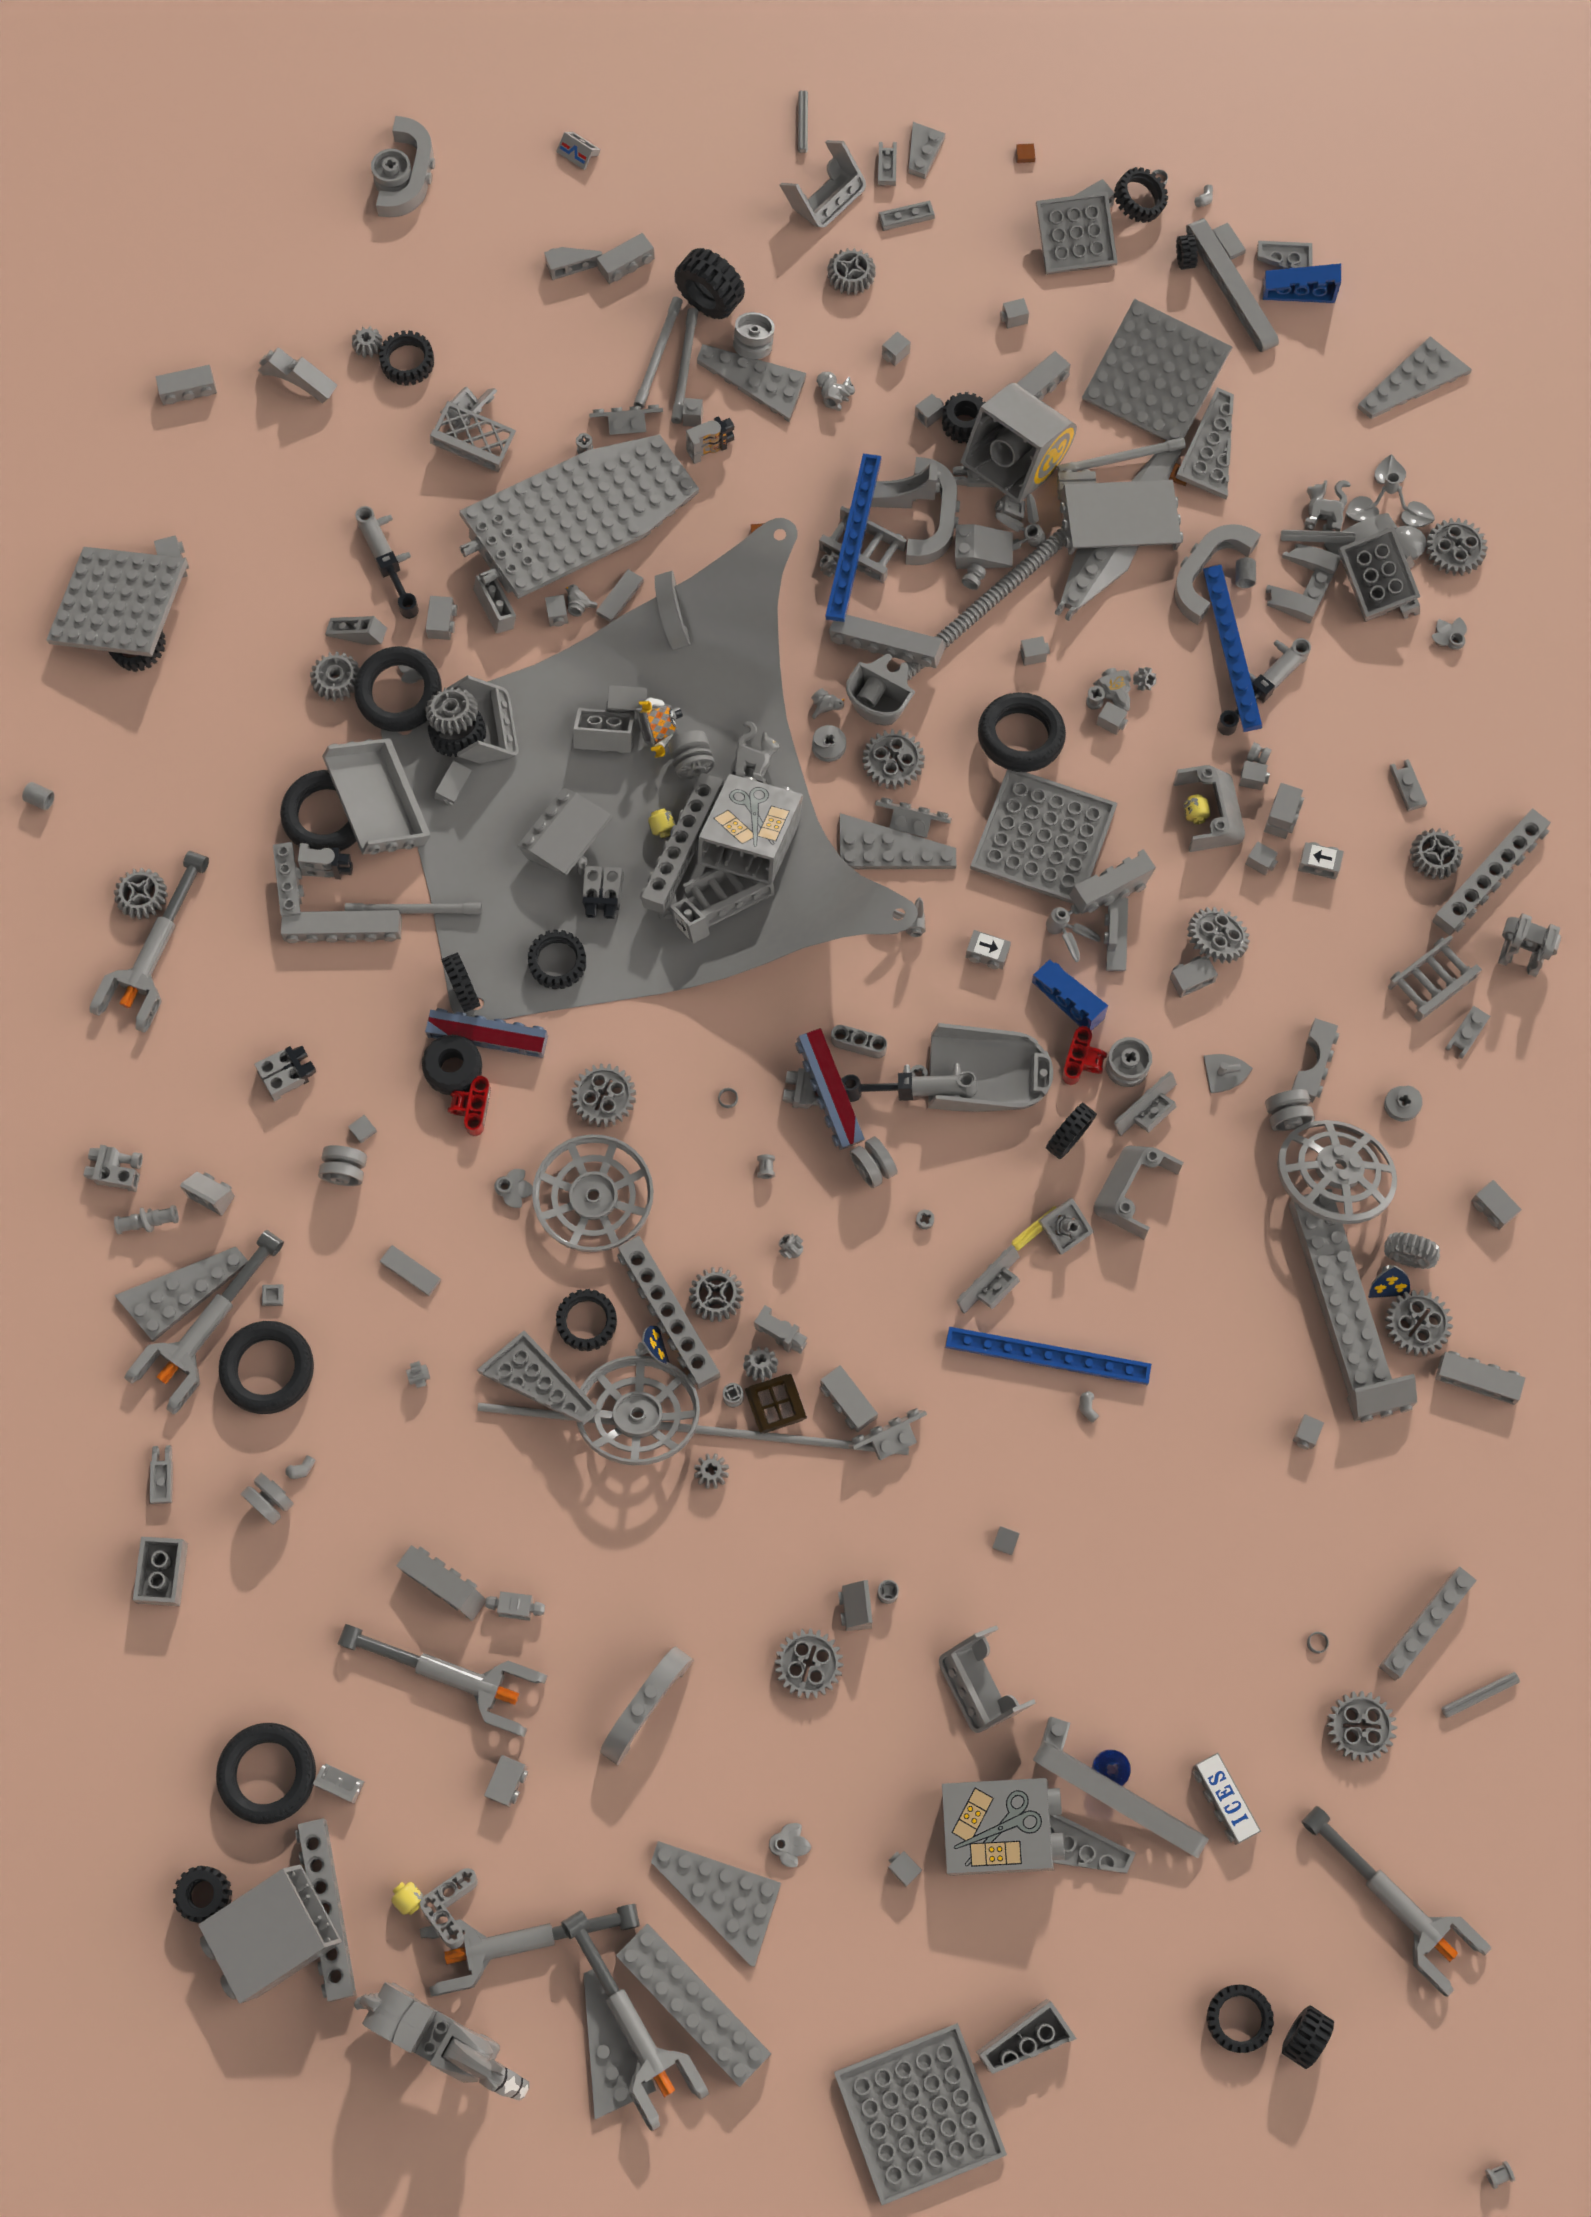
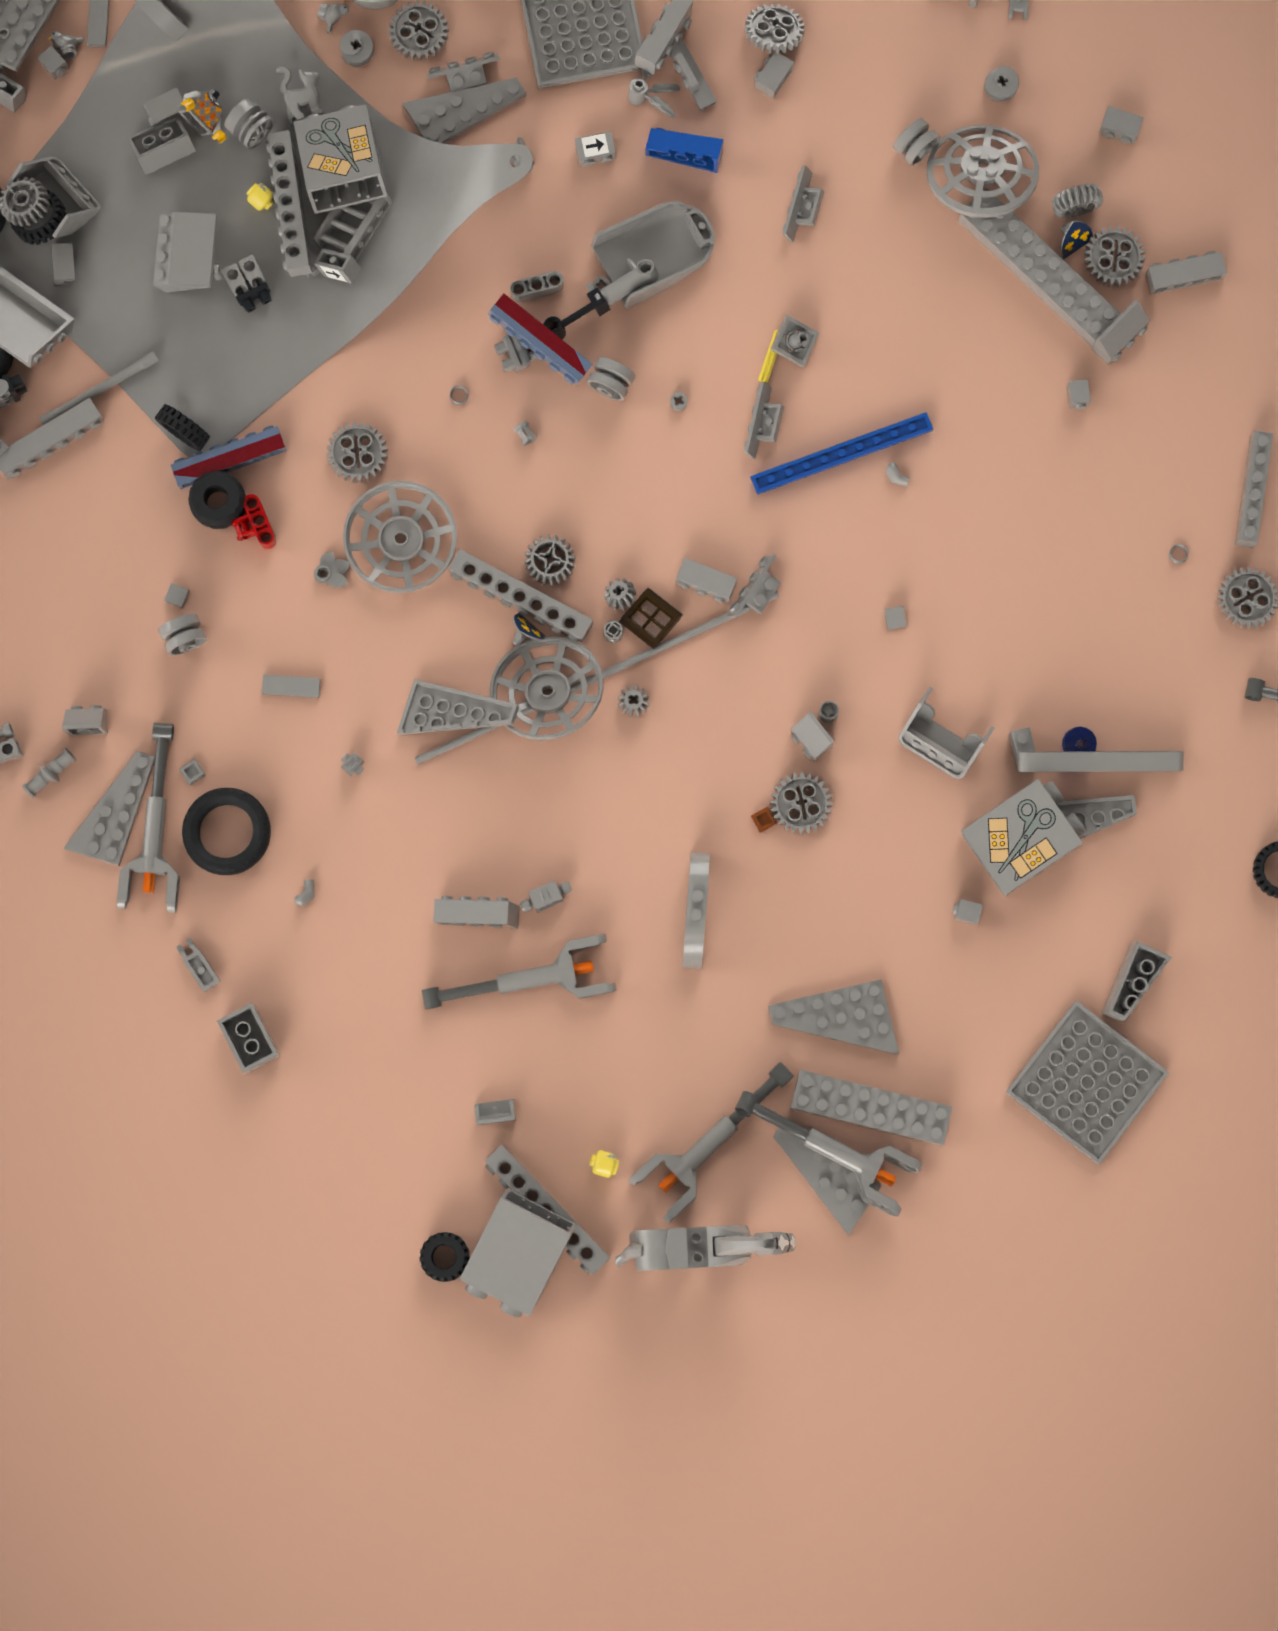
camera: 30 degrees left, 10 degrees up
(234, 1751) = (408, 1114): black tyre -> none
(267, 1498) = (297, 930): light grey wheel -> none
(284, 1072) = (81, 586): light grey hips -> none
(441, 1903) = (633, 1150): light grey beam -> none
(506, 1781) = (624, 1032): light grey brick -> none
(550, 938) = (232, 345): black tyre -> none
(582, 1296) = (453, 619): black tyre -> none
(764, 1658) = (763, 819): none -> dark orange tile
(780, 1330) = (621, 558): light grey hips -> none
(790, 1246) = (585, 486): light grey gear -> none
(793, 1844) = (872, 946): light grey plate -> none
(1071, 1130) = (754, 260): black tyre -> none
(1088, 1058) = (732, 191): red beam -> none
(1111, 1201) = (819, 300): light grey windscreen -> none
(1128, 1062) = (764, 176): light grey wheel -> none
(1225, 1072) = (845, 140): light grey shield -> none
(1226, 1799) = (1178, 713): brick -> none
(1320, 1038) = (906, 67): light grey arch -> none

